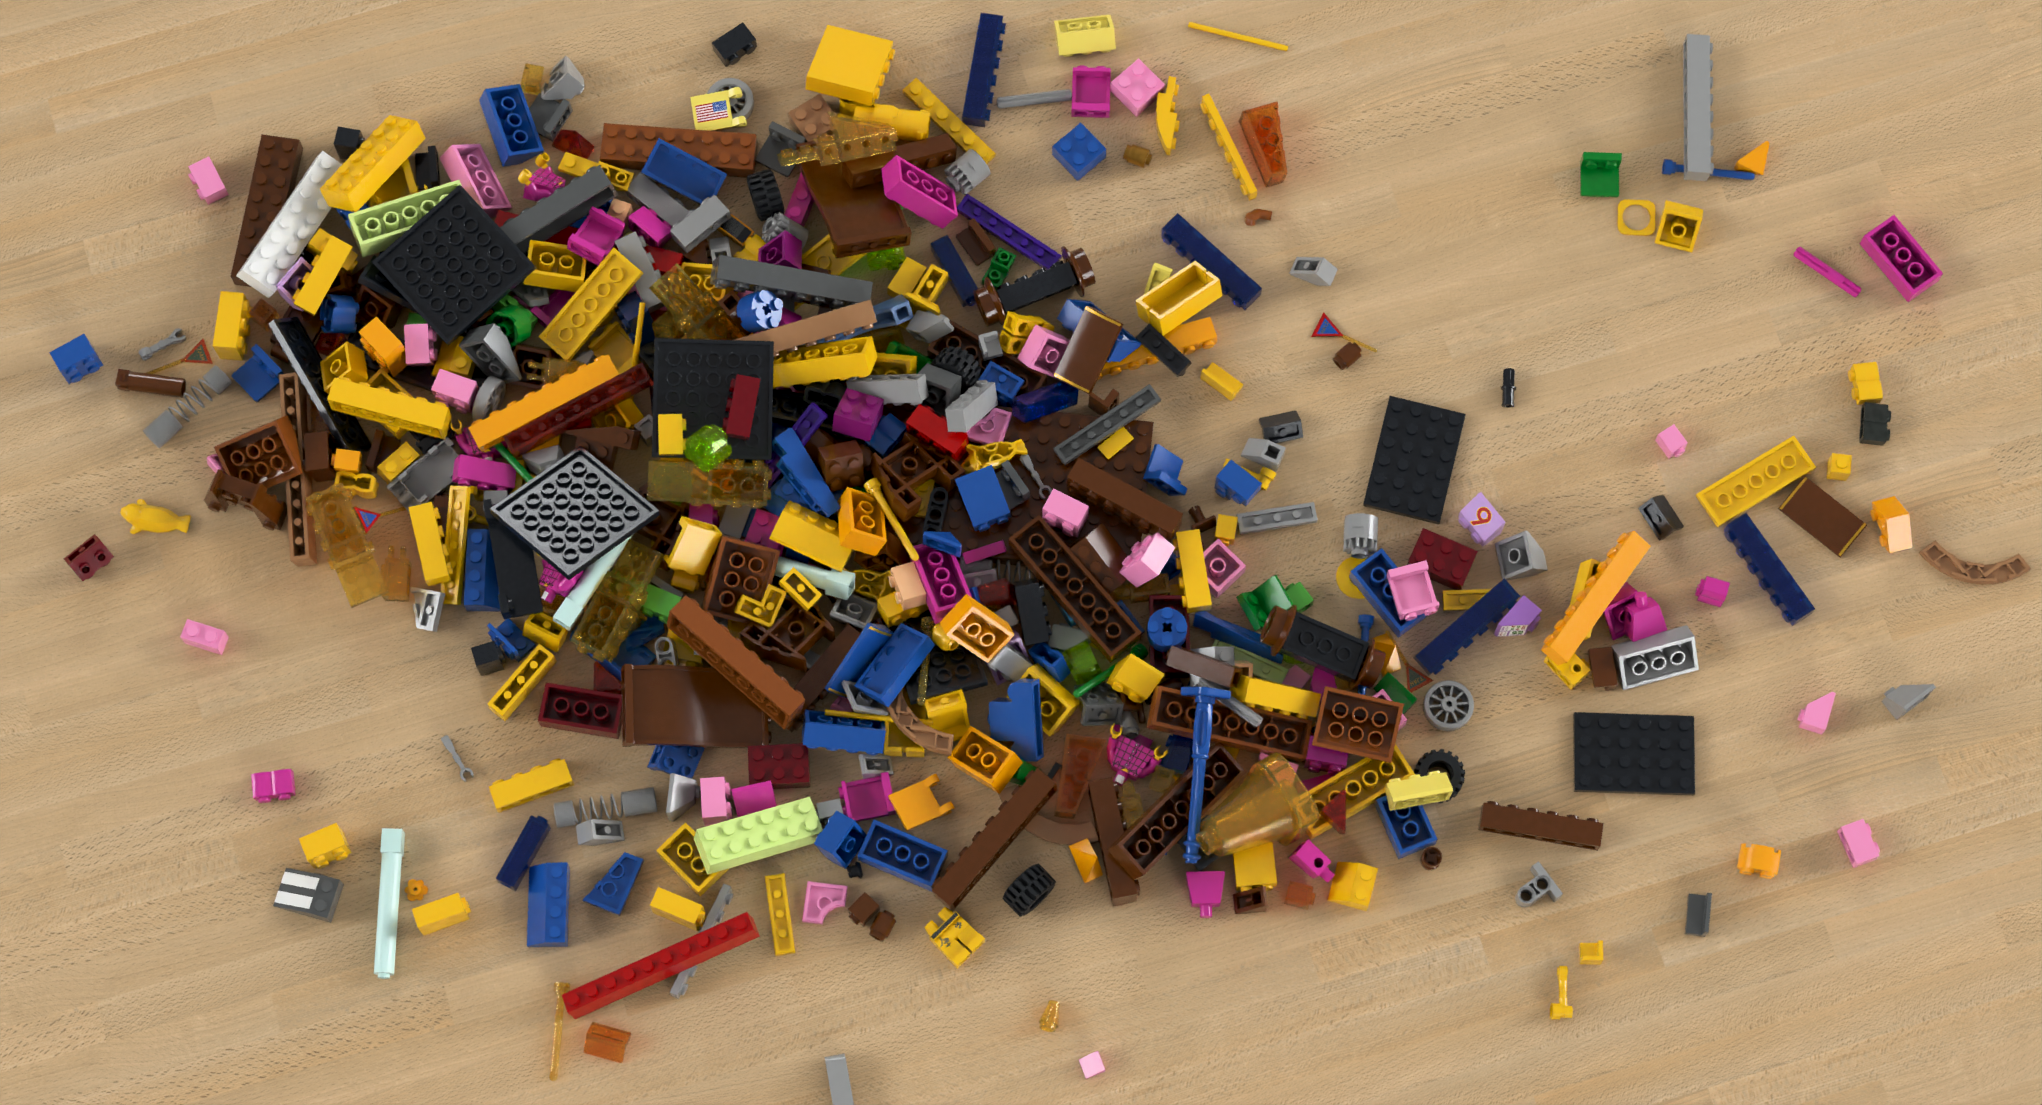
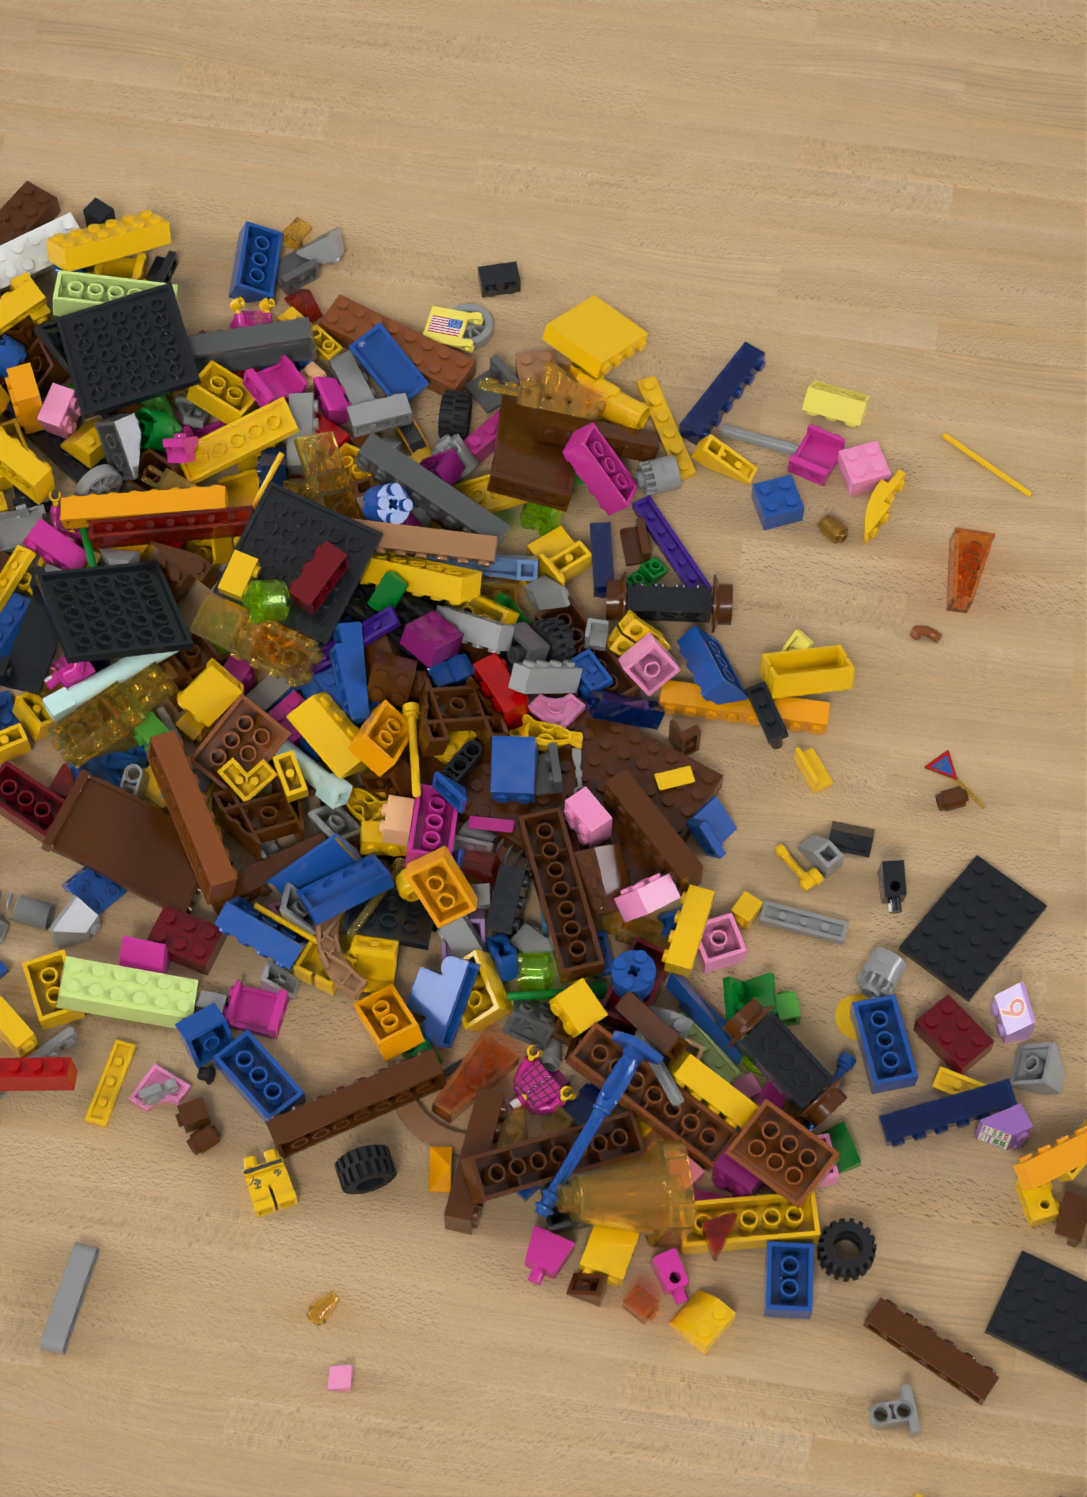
camera: 25 degrees right, 10 degrees down
(455, 391) = (68, 462): bright pink brick -> none
(476, 176) = (198, 295): bright pink slope -> none
(546, 334) = (180, 448): none -> dark pink brick
(714, 800) = (104, 940): bright pink brick -> none
(801, 390) = (388, 591): none -> green slope
(823, 908) = (153, 1094): none -> light grey plate
(917, 803) = (302, 1036): light orange flag -> none
(1014, 132) = (723, 459): none -> yellow slope
(1088, 349) = (690, 677): reddish brown slope -> none
(1107, 424) = (675, 755): dark grey plate -> none
(1197, 248) = (868, 675): clear blue brick -> none
(1200, 521) = (724, 894): reddish brown bracket -> none
(1231, 153) = (927, 565): yellow plate -> none
(1236, 484) = (776, 868): blue brick -> none
(1314, 270) = (957, 705): light grey slope -> none
(1331, 447) = (892, 876): none -> black torso
(1391, 661) = (851, 1109): light orange slope -> none
(1412, 590) = (906, 1048): bright pink panel -> none
(1415, 678) = (870, 1142): clear yellow piece -> none
(1418, 790) = (814, 1250): light yellow slope -> none
(1434, 855) = (797, 1326): reddish brown wheel -> none
(1448, 705) = (891, 1184): light grey wheel -> none

